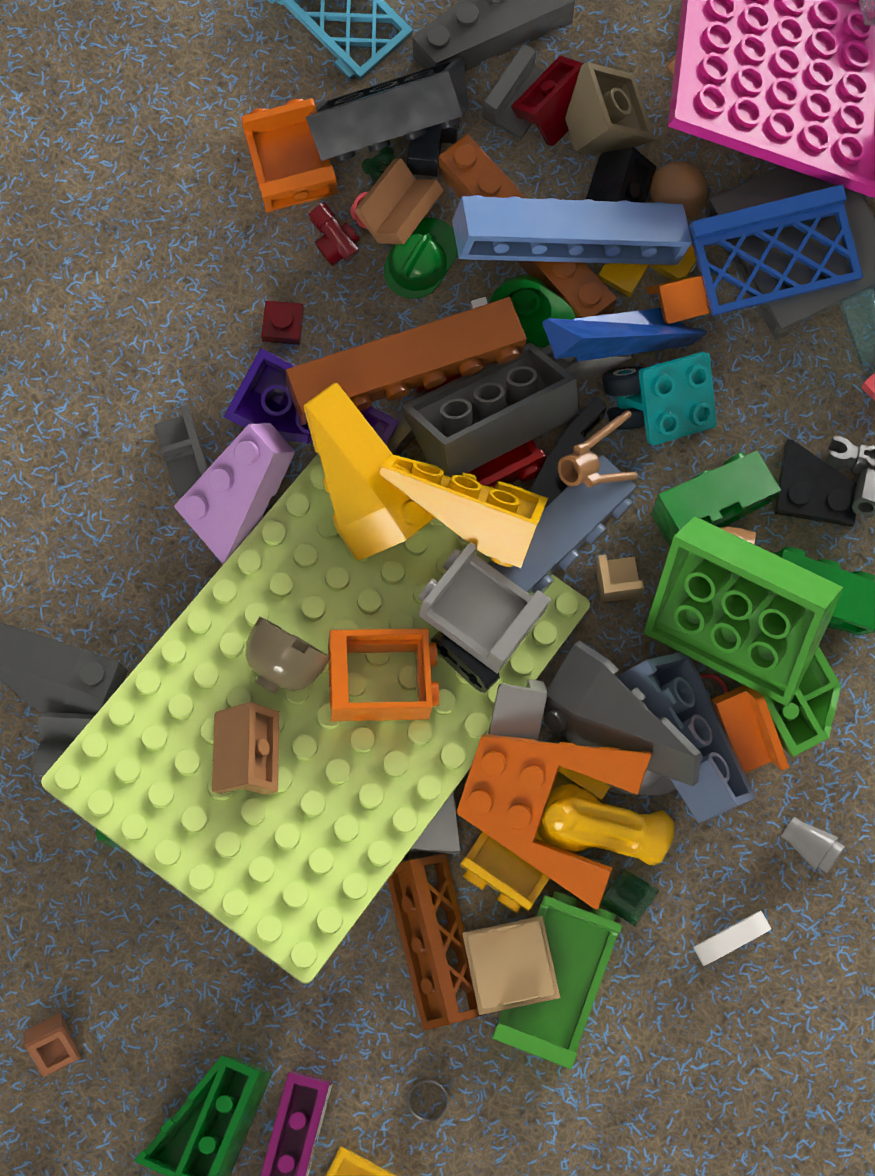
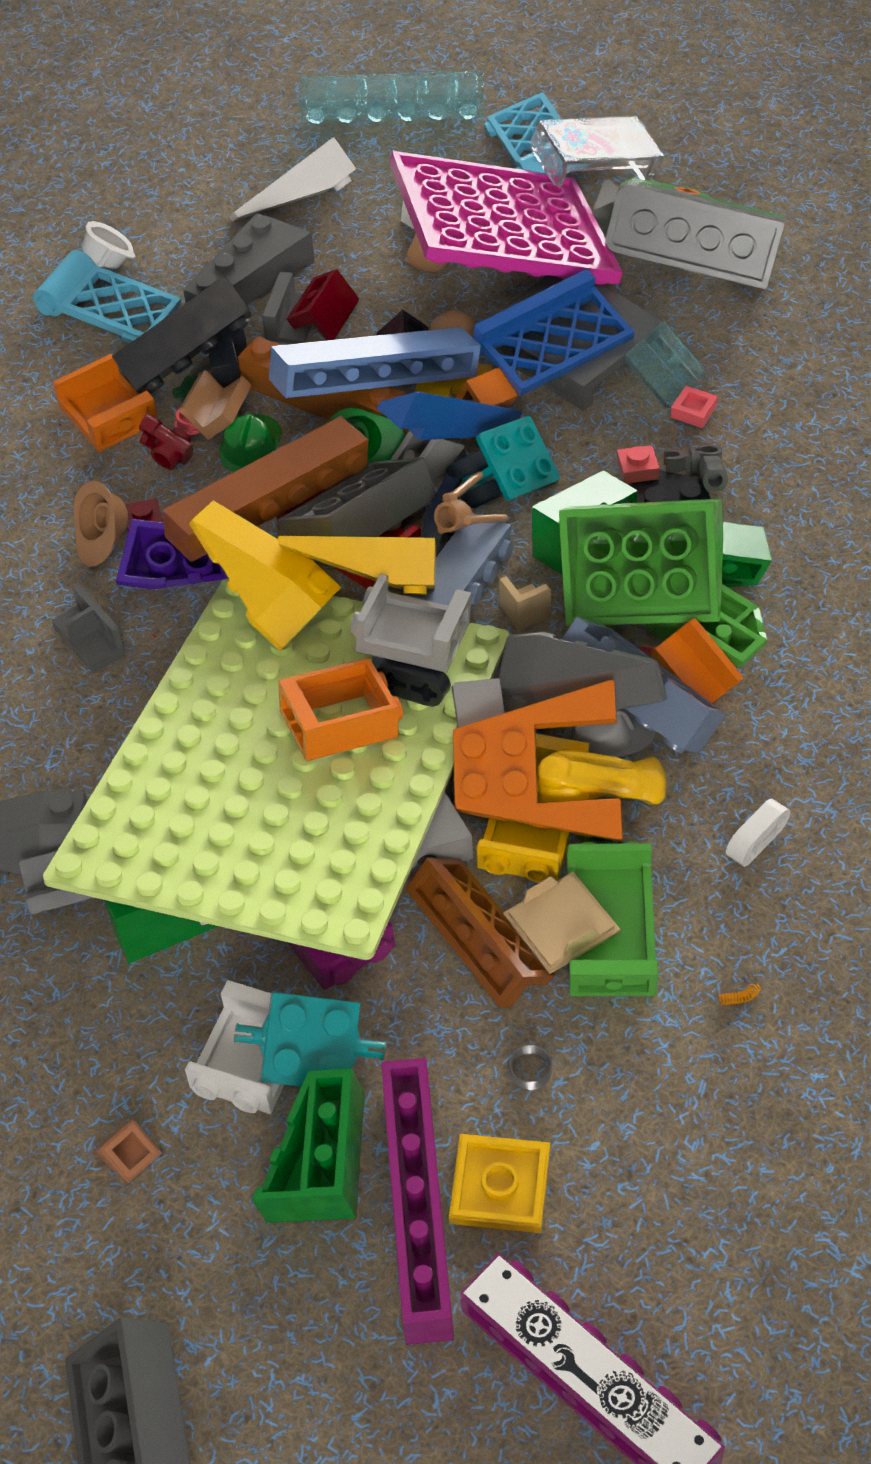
camera: 20 degrees left, 25 degrees down
(185, 991) = (233, 1068): none -> white panel
(235, 320) = (98, 521): none -> medium nougat piece
(237, 488) = (147, 625): lavender wedge -> none
(237, 1014) = (307, 1036): none -> teal plate
(246, 749) = (234, 788): medium nougat panel -> none
(282, 658) = (243, 712): dark tan cylinder -> none
(606, 111) = (366, 300): dark tan slope -> none
(629, 897) = (649, 830): clear green plate -> none
(647, 1100) = (744, 993): none -> light orange leg
(798, 447) = (638, 464): none -> coral plate
(813, 844) = (796, 739): light grey cone -> none

